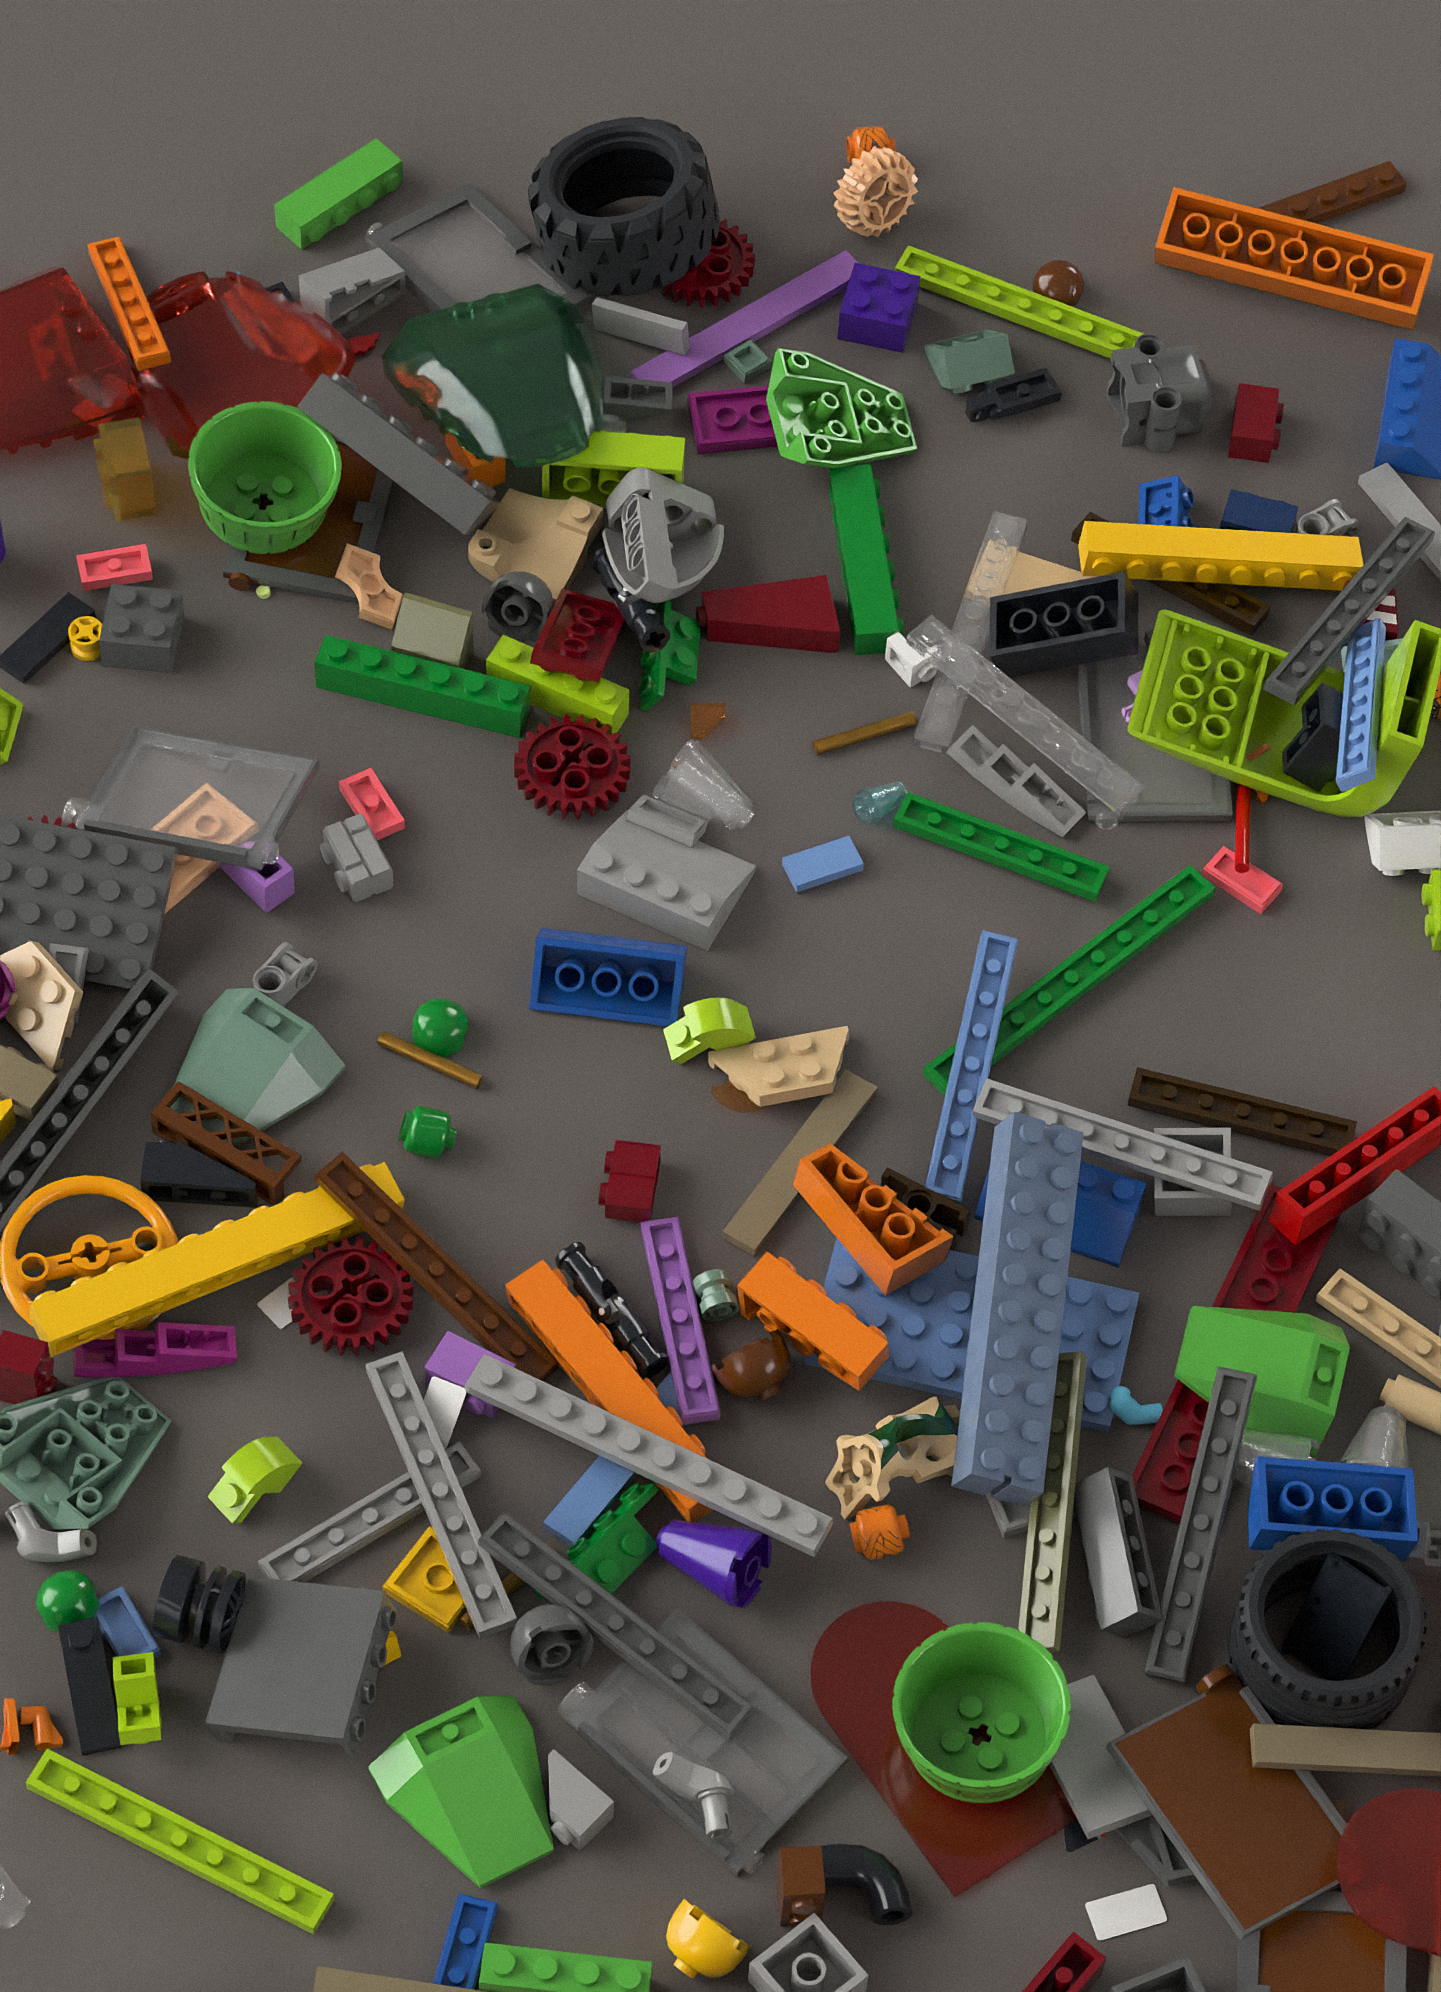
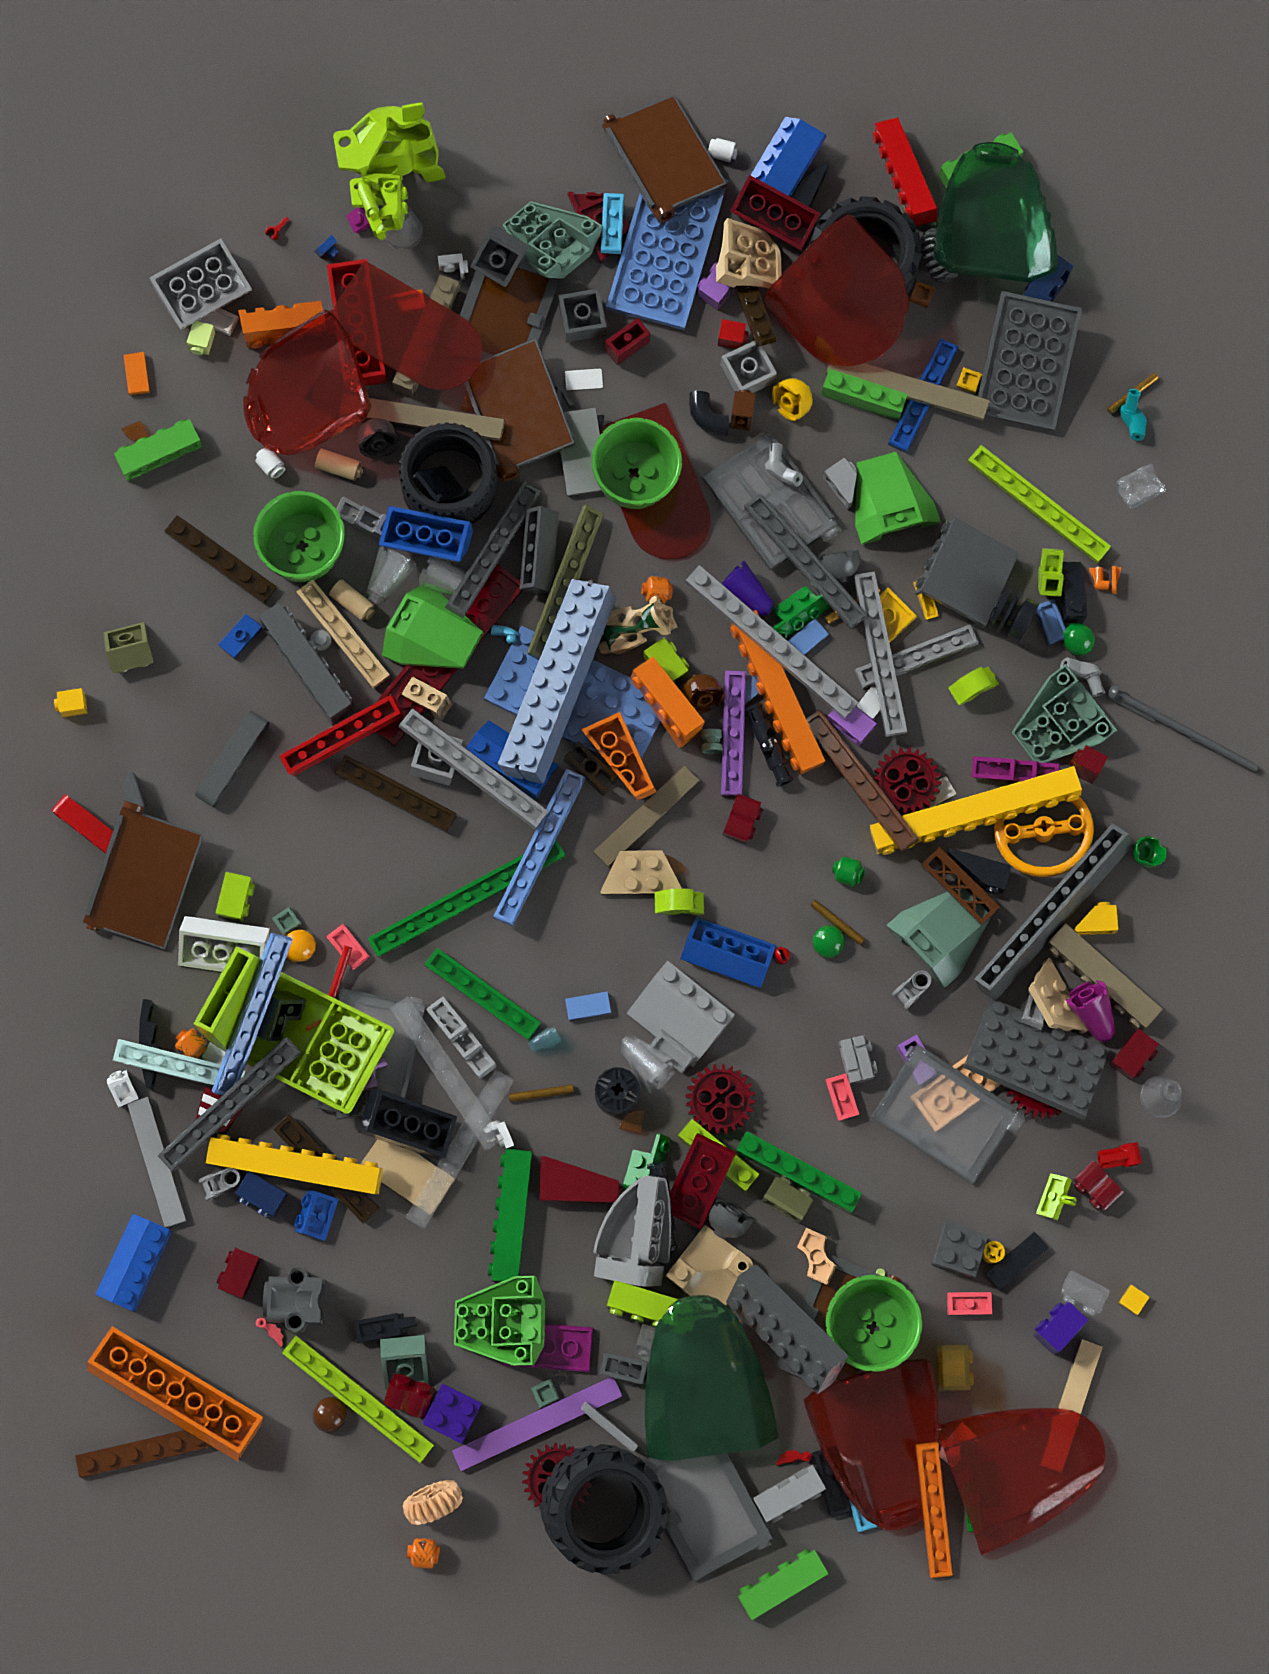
camera: 170 degrees left, 20 degrees up
(510, 997) = (777, 957): none -> red hinge
(744, 736) = (625, 1101): none -> black wheel
(829, 1407) = (666, 656): none -> lime brick
(939, 313) = (409, 1395): none -> dark red brick
(1238, 1261) = (428, 697): none -> tan bracket
(1322, 863) = (302, 946): none -> light orange hair
(1355, 898) = (286, 921): none -> sand green tile

